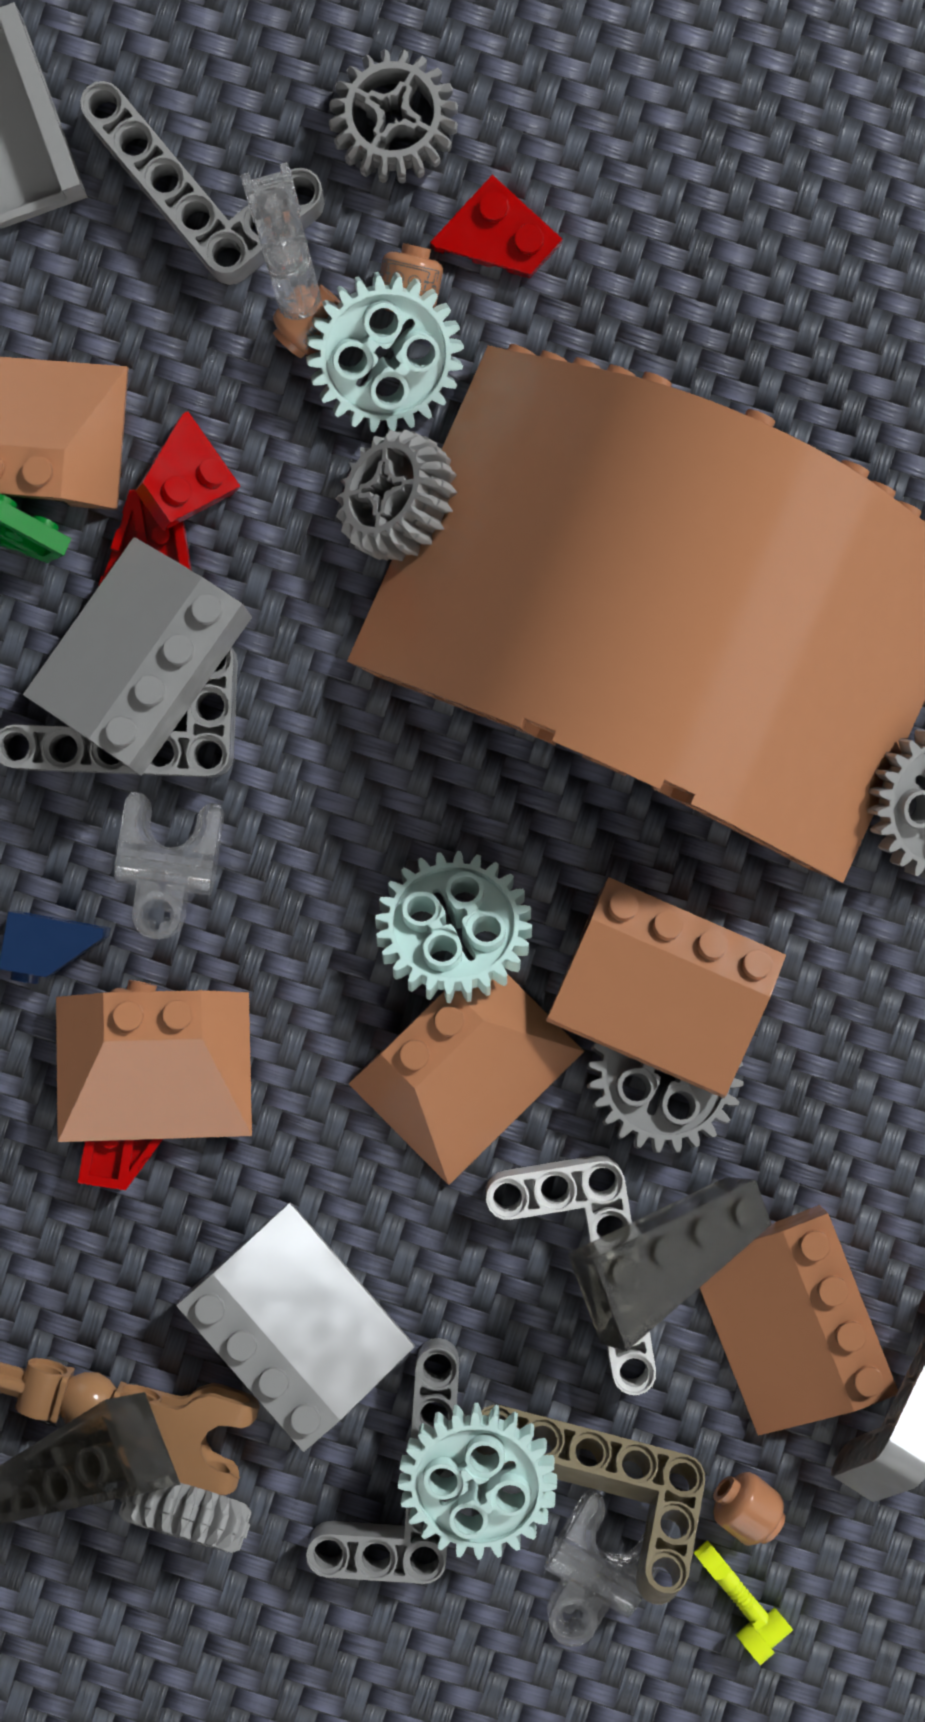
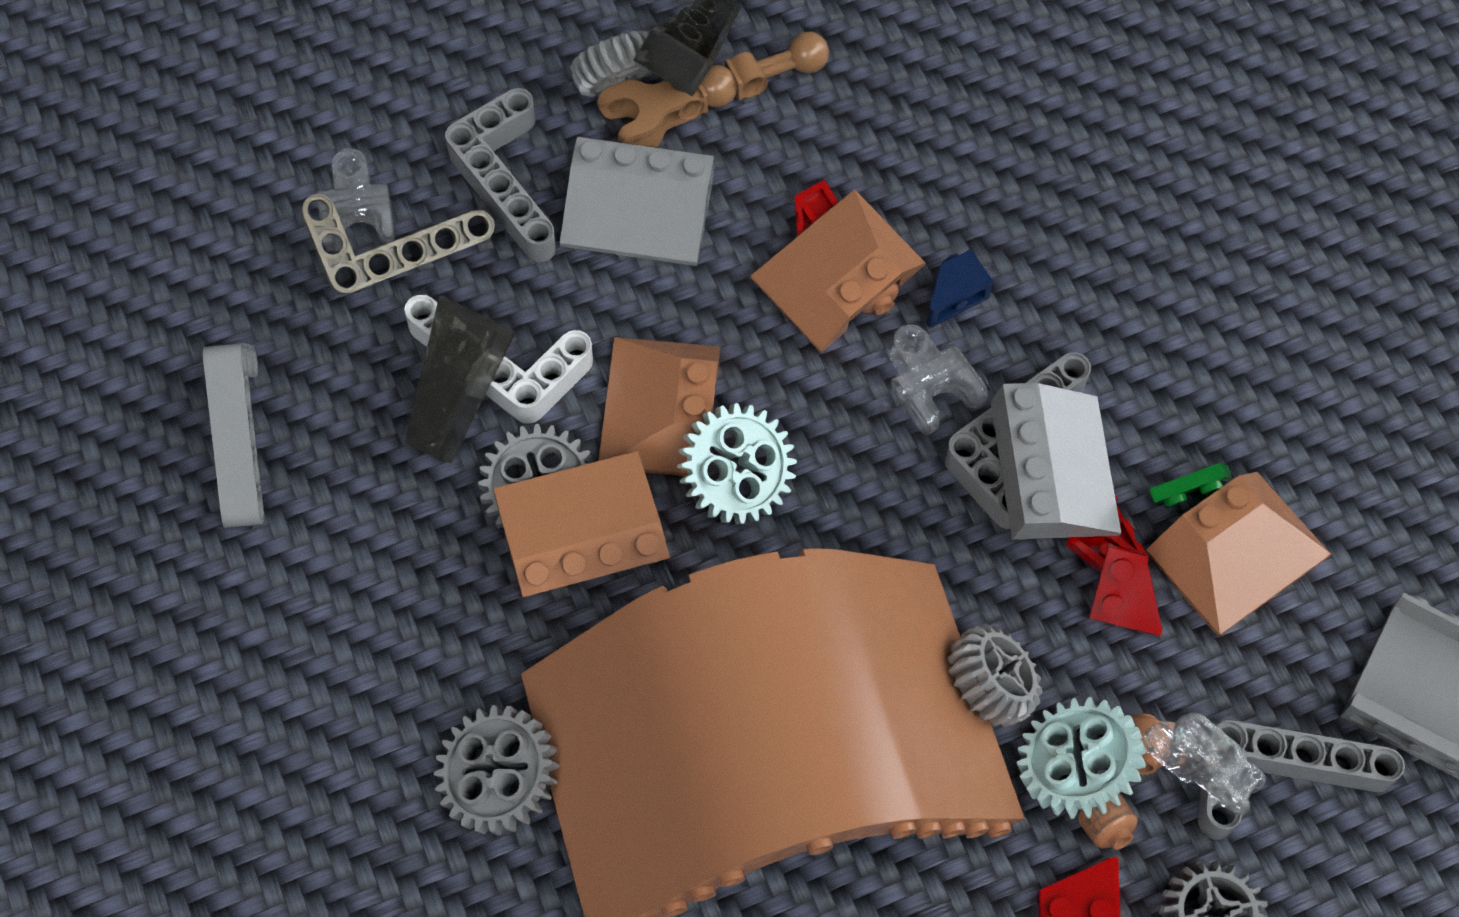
camera: 135 degrees right, 25 degrees down
(453, 1448) = (466, 185): light aqua gear -> none
(748, 1509) = (290, 294): nougat head -> none
(764, 1628) = (229, 242): neon yellow brick -> none
(797, 1326) = (339, 413): nougat slope -> none

